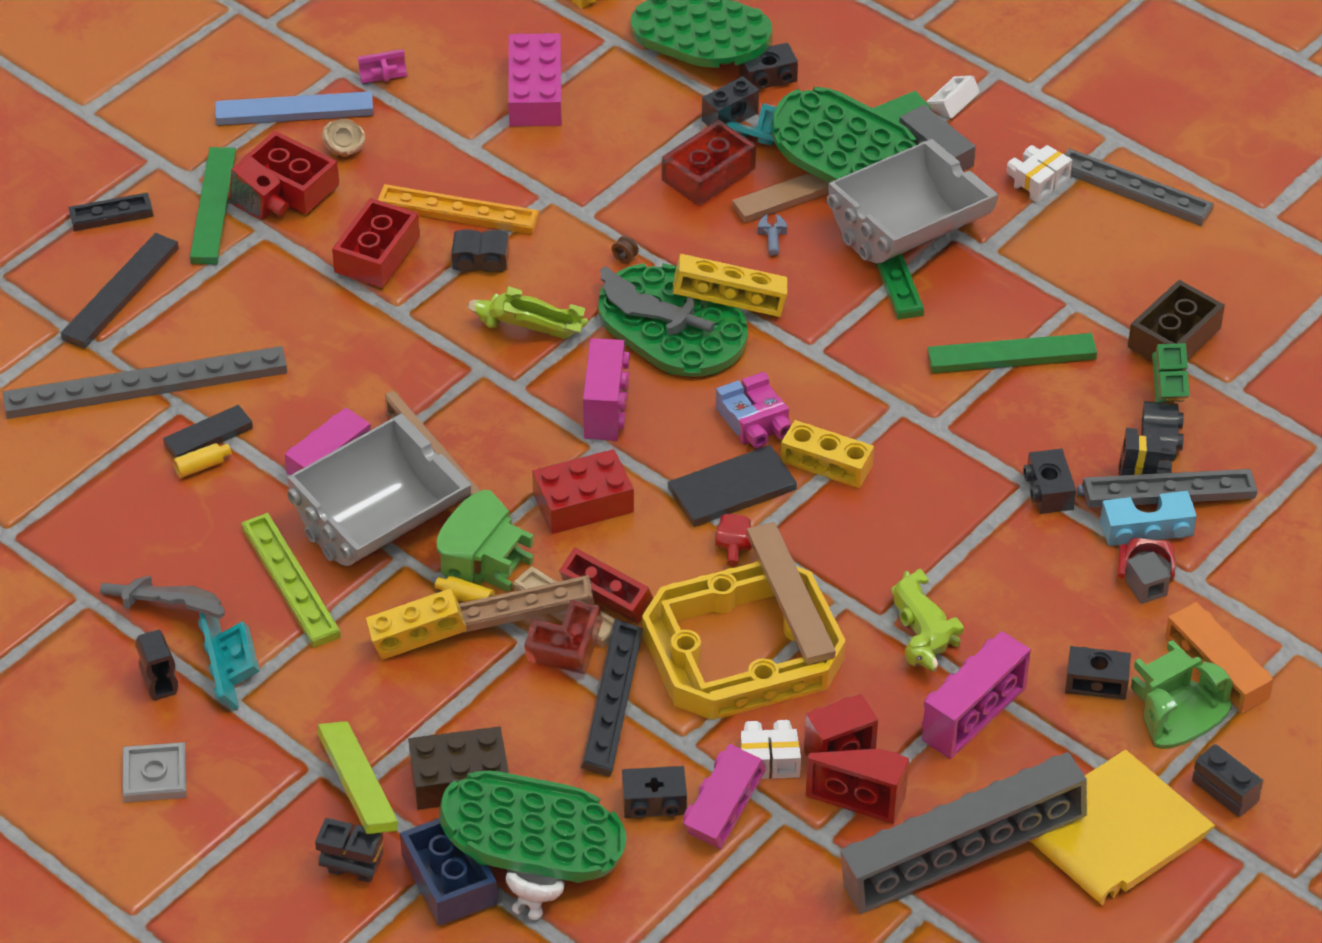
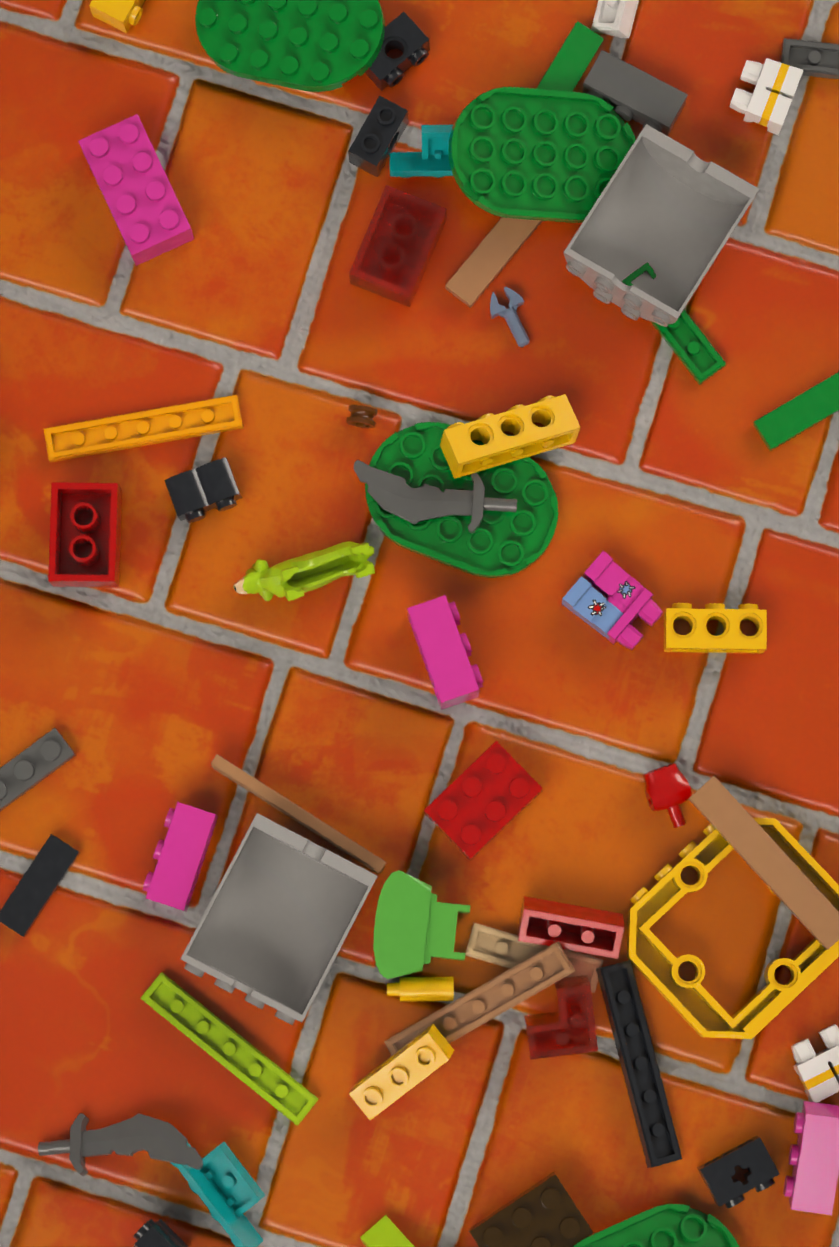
camera: 20 degrees left, 35 degrees up
(200, 459) = (51, 929): yellow cylinder -> none
(732, 485) = (630, 713): black tile -> none

